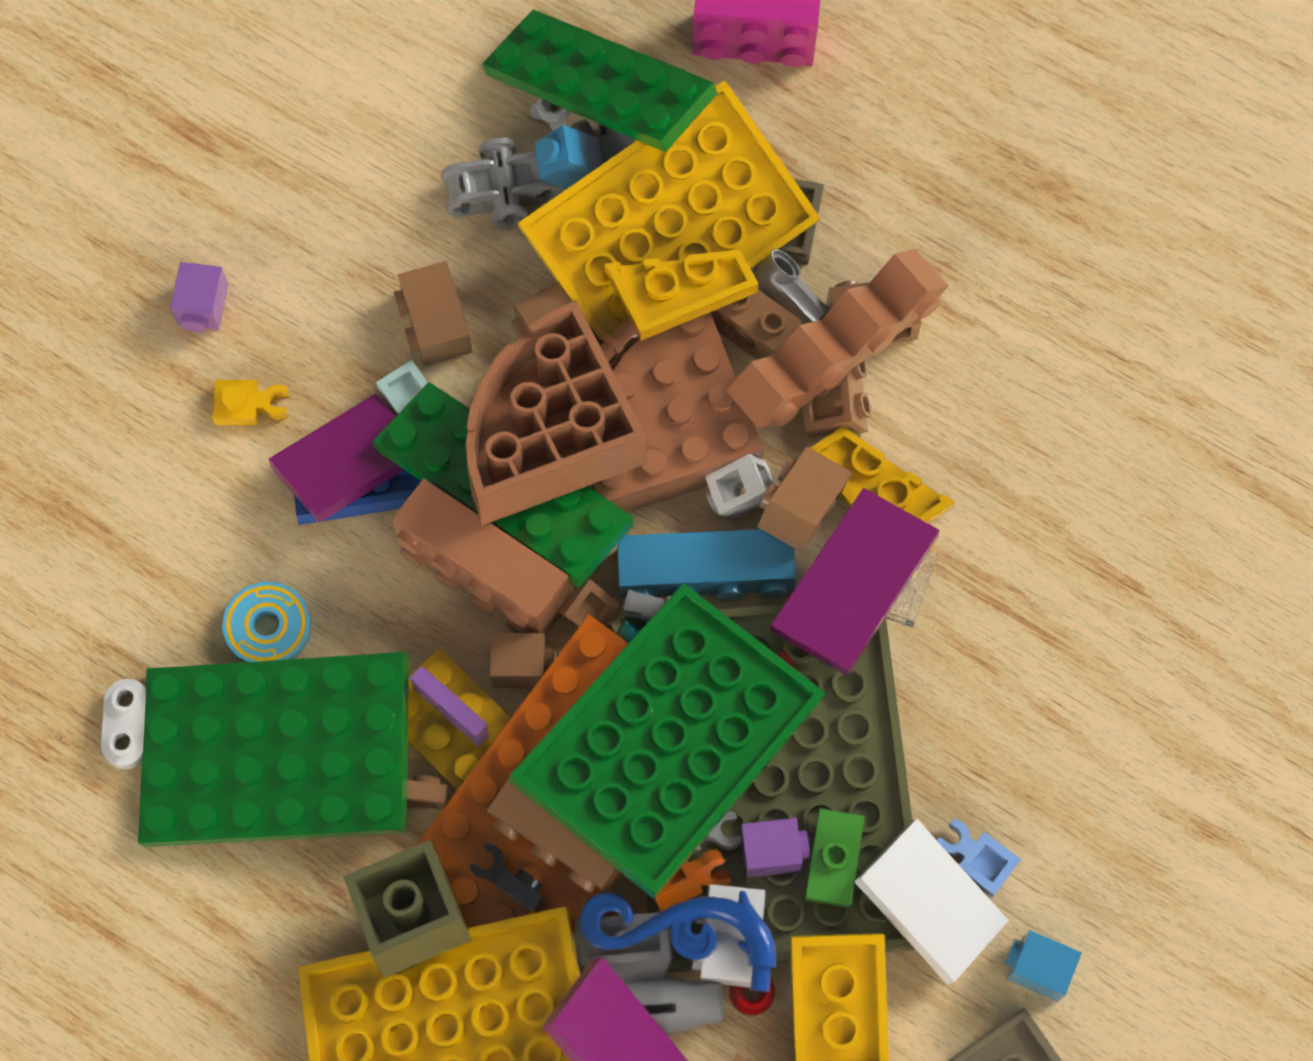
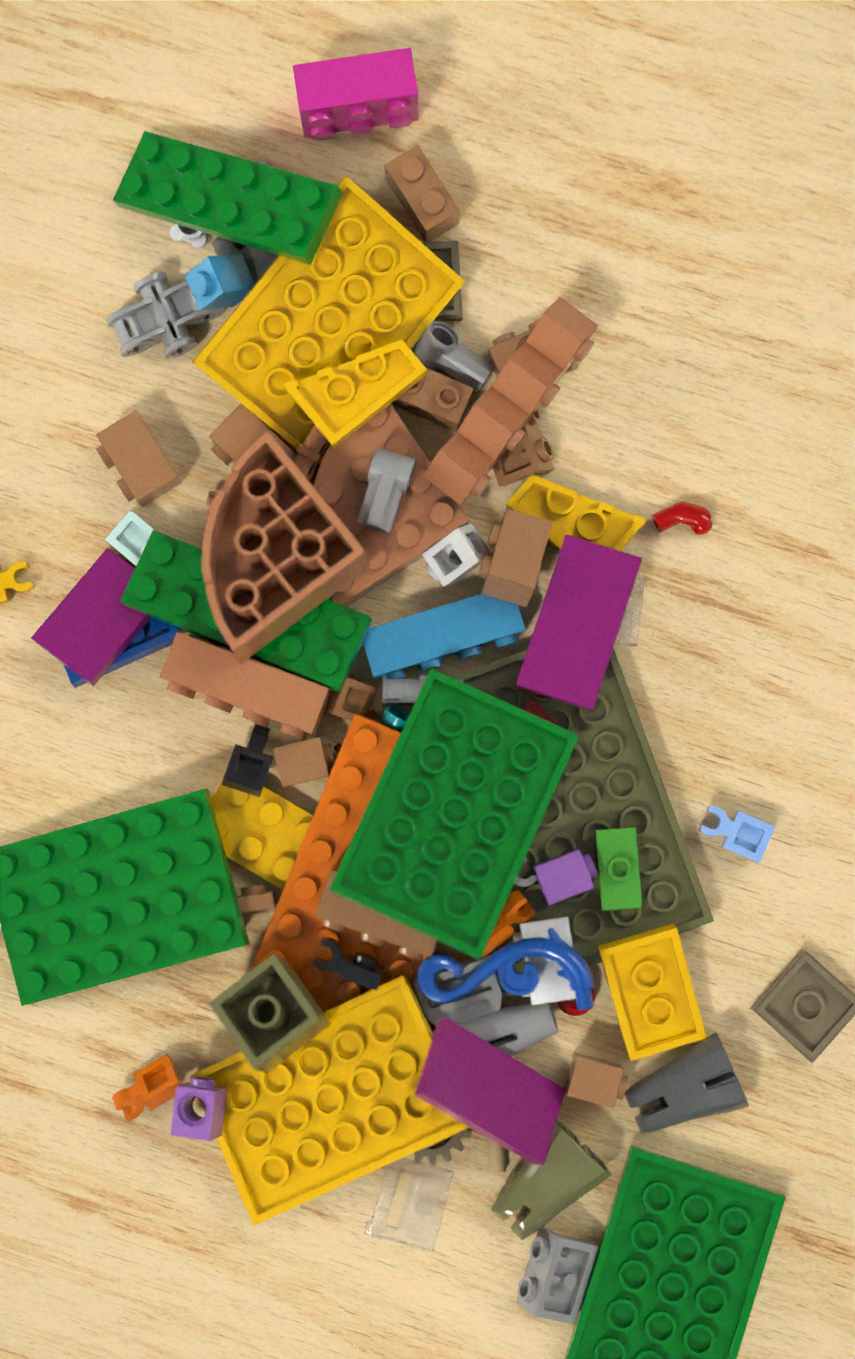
camera: 15 degrees left, 15 degrees up
(253, 969) = (153, 1087): none -> orange plate
(260, 601) = (50, 780): medium azure tile -> none
(308, 1016) = (185, 1120): none -> medium lavender brick
(450, 706) = (255, 823): medium lavender tile -> none
(461, 647) = (249, 765): none -> black plate
(687, 384) = (388, 480): none -> light grey piece
(798, 129) = (422, 194): none -> medium nougat brick
(931, 901) = (708, 884): white tile -> none
(997, 508) = (685, 513): none -> red arm
(1042, 965) = (812, 912): dark azure brick -> none

